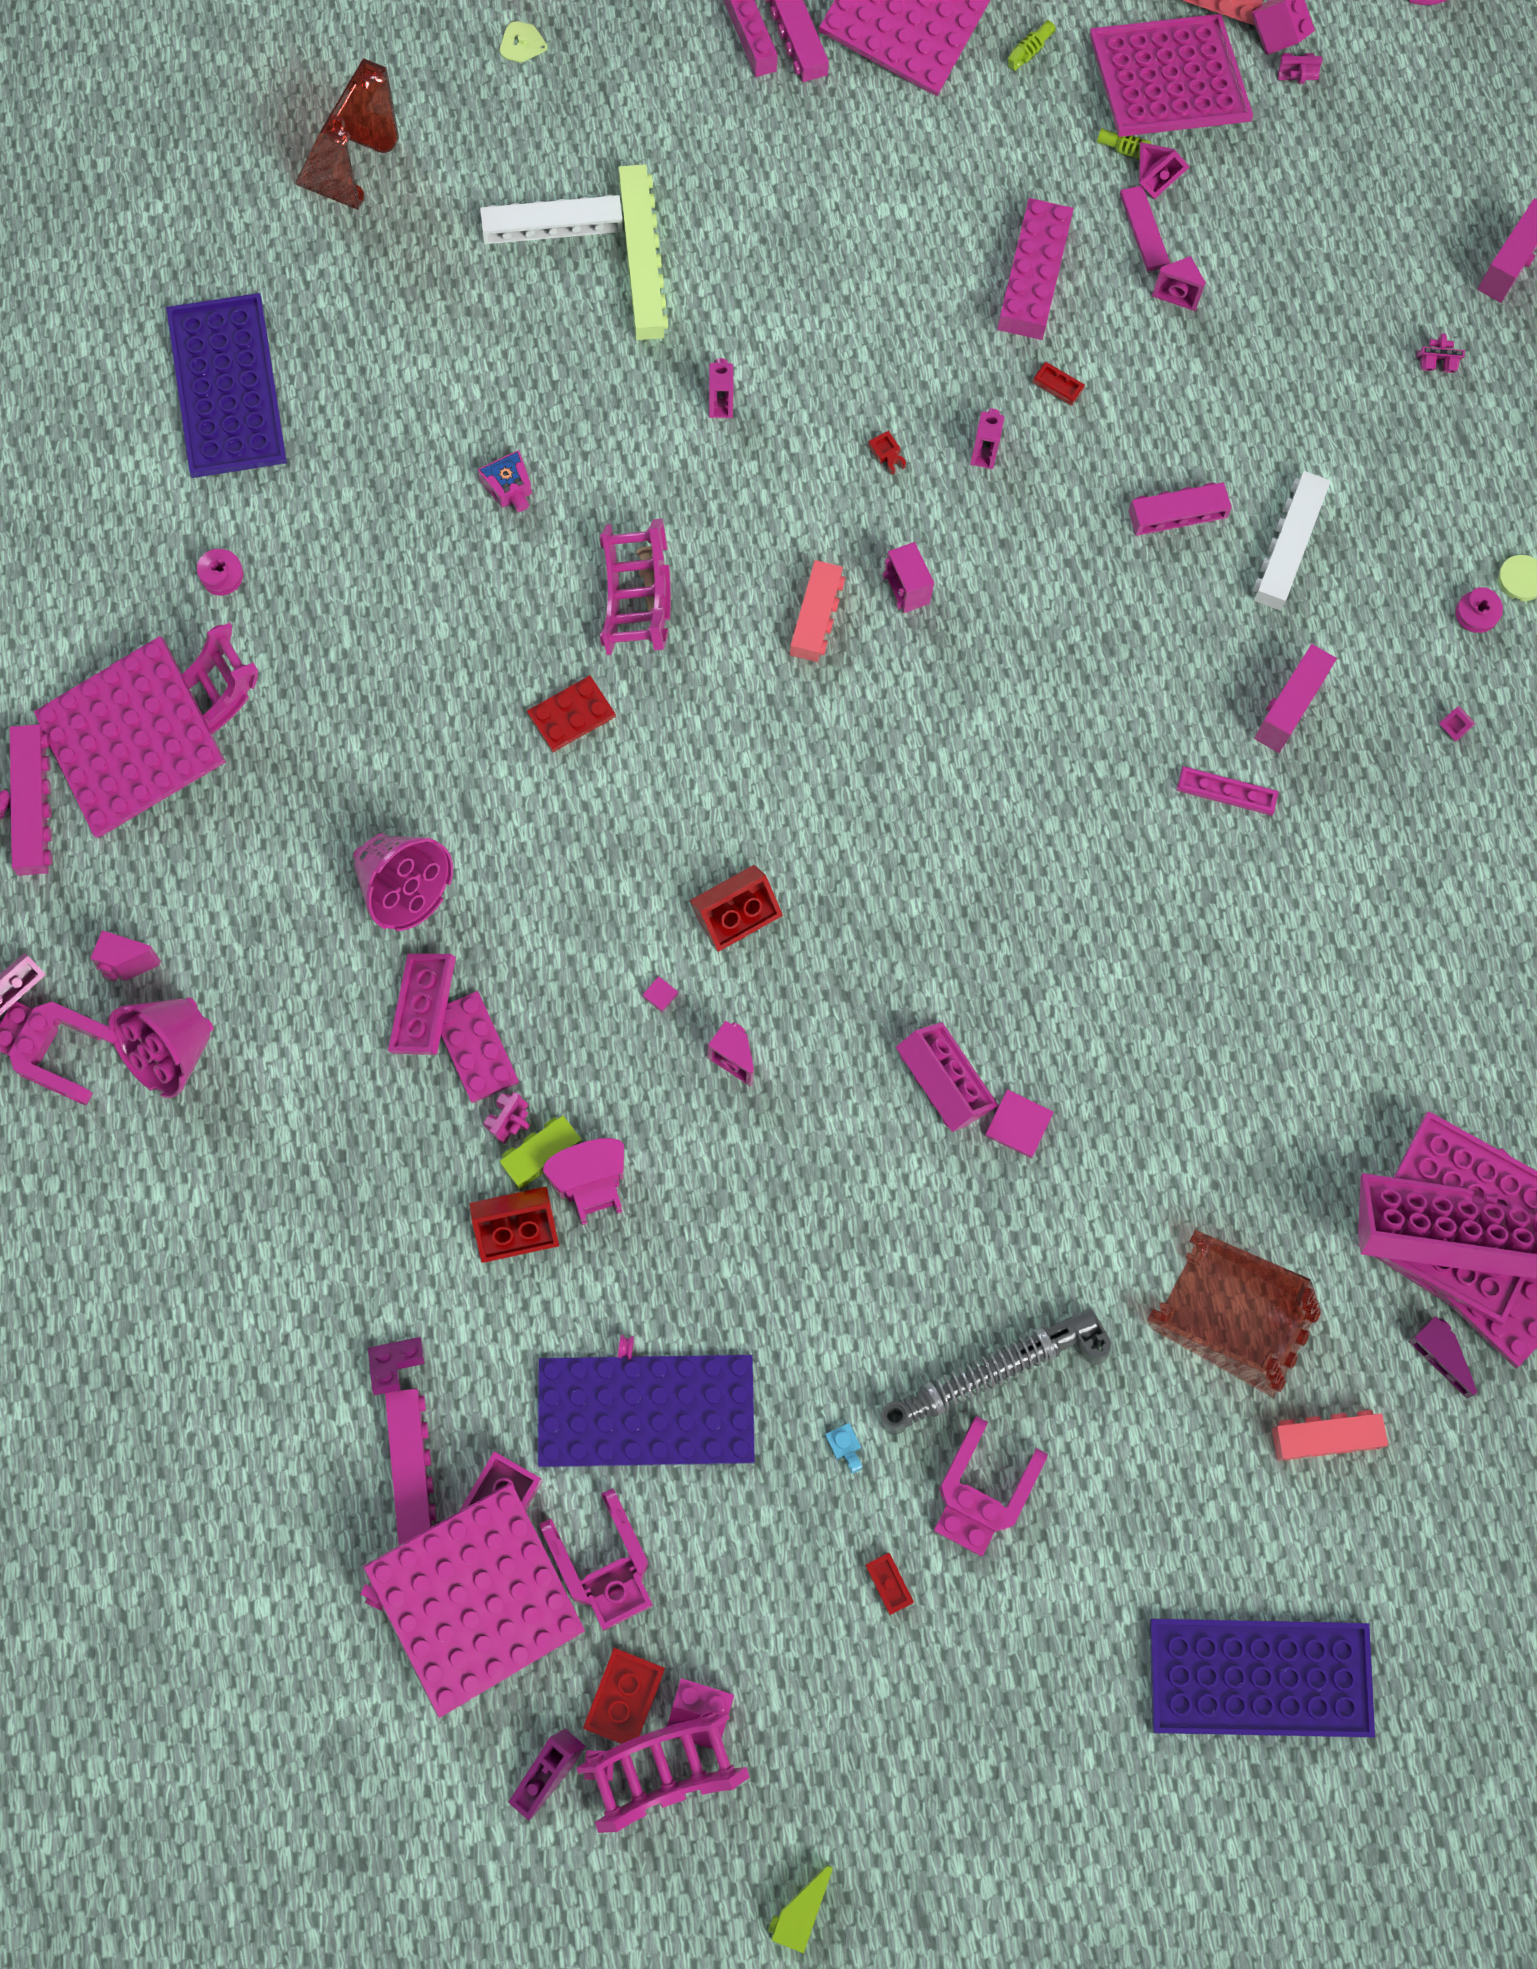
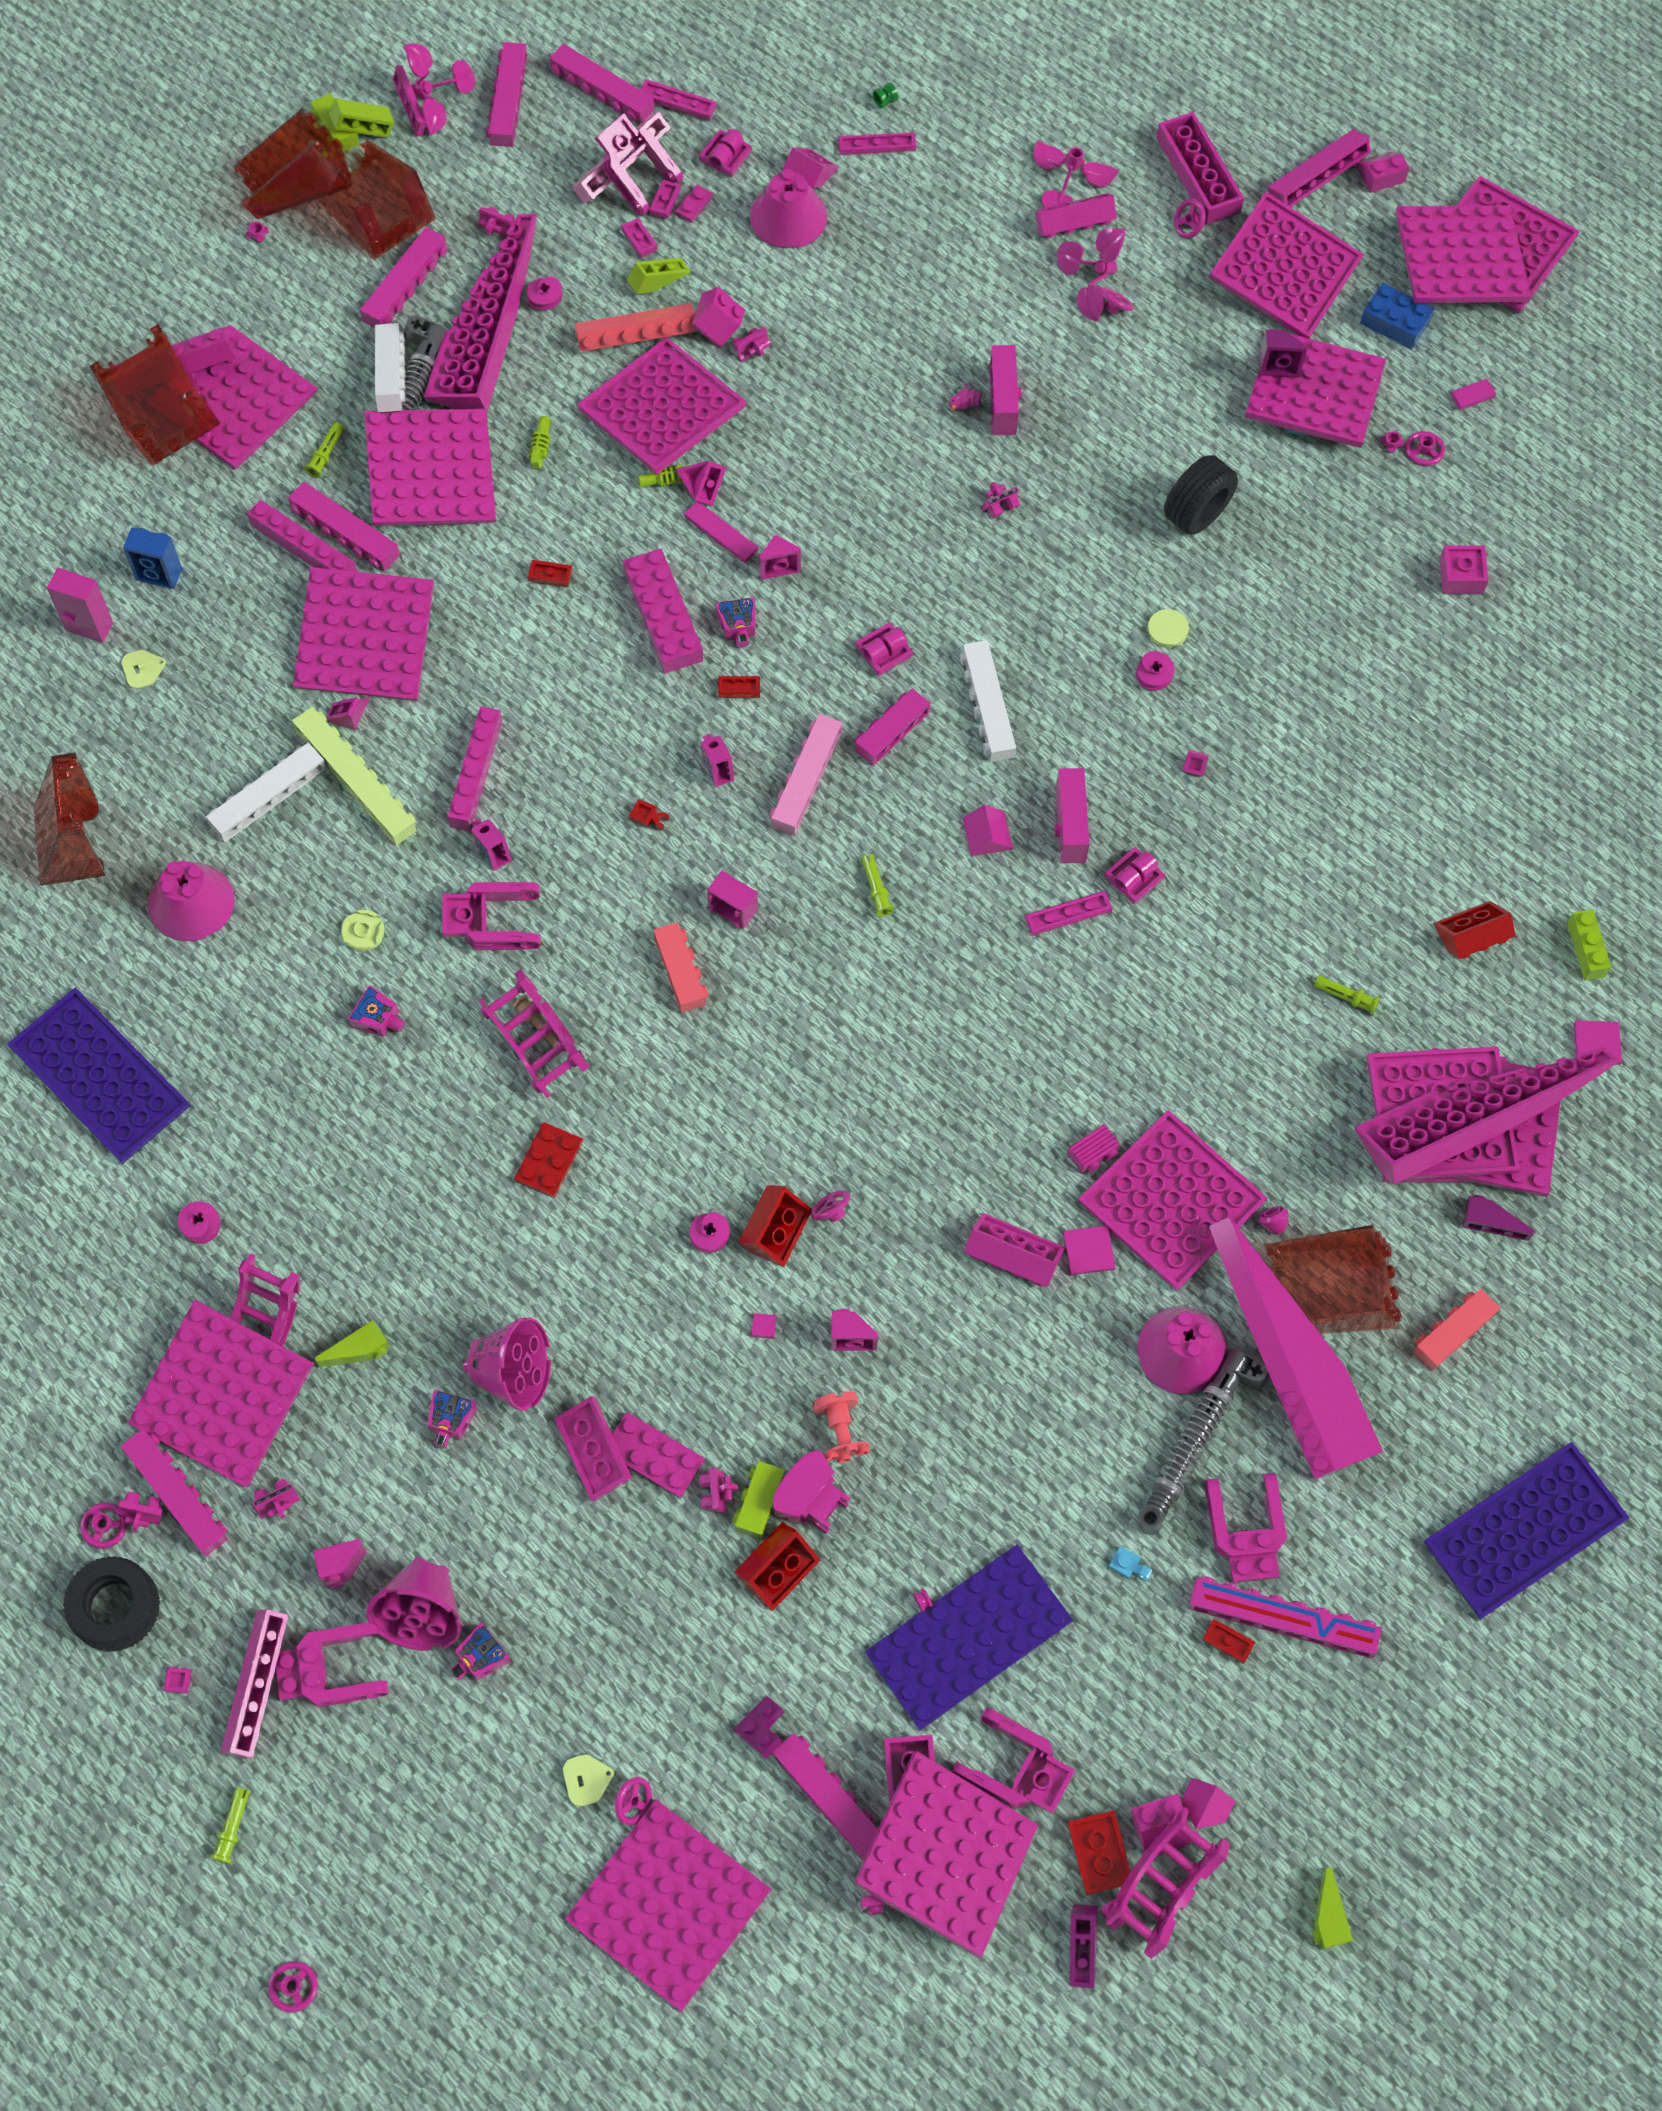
camera: 30 degrees left, 5 degrees down
(109, 866) = (277, 1501): none -> dark pink hips
(190, 1123) = (479, 1654): none -> torso
(197, 1467) = (668, 1905): none -> dark pink plate
(212, 1305) = (593, 1777): none -> yellowish green piece
(228, 1345) = (629, 1798): none -> dark pink piece
(283, 774) = (357, 1347): none -> lime slope
(315, 890) = (449, 1417): none -> torso
(416, 276) = (190, 901): none -> dark pink cone
(557, 402) = (369, 930): none -> yellowish green tile
(654, 441) = (466, 915): none -> dark pink plate
(665, 1126) = (838, 1417): none -> coral piece
(669, 885) = (712, 1242): none -> dark pink piece
(678, 191) = (347, 712): none -> dark pink slope
(740, 126) = (363, 634): none -> dark pink plate
(756, 310) = (475, 768): none -> dark pink brick
(756, 1724) = (1206, 1804): none -> dark pink slope
(798, 923) = (832, 1209): none -> dark pink piece
(954, 172) = (550, 573): none -> red plate
(960, 1600) = (1285, 1617): none -> dark pink brick
(1039, 1296) = (1182, 1349): none -> dark pink cone
(1055, 658) = (879, 893): none -> lime pin
(1064, 504) = (806, 774): none -> bright pink brick
(1091, 1030) = (1093, 1149): none -> dark pink brick
(1102, 319) = (737, 619): none -> torso
(1134, 1128) = (1167, 1196): none -> dark pink plate
(1145, 1367) = (1300, 1362): none -> dark pink wedge
(1203, 664) = (987, 831): none -> dark pink slope
(1222, 1212) = (1275, 1219): none -> dark pink cone
(1225, 430) = (885, 648): none -> dark pink plate
(1319, 794) = (1135, 874): none -> dark pink plate
(1458, 1051) = (1357, 998): none -> lime pin
(1474, 239) = (966, 398): none -> dark pink animal

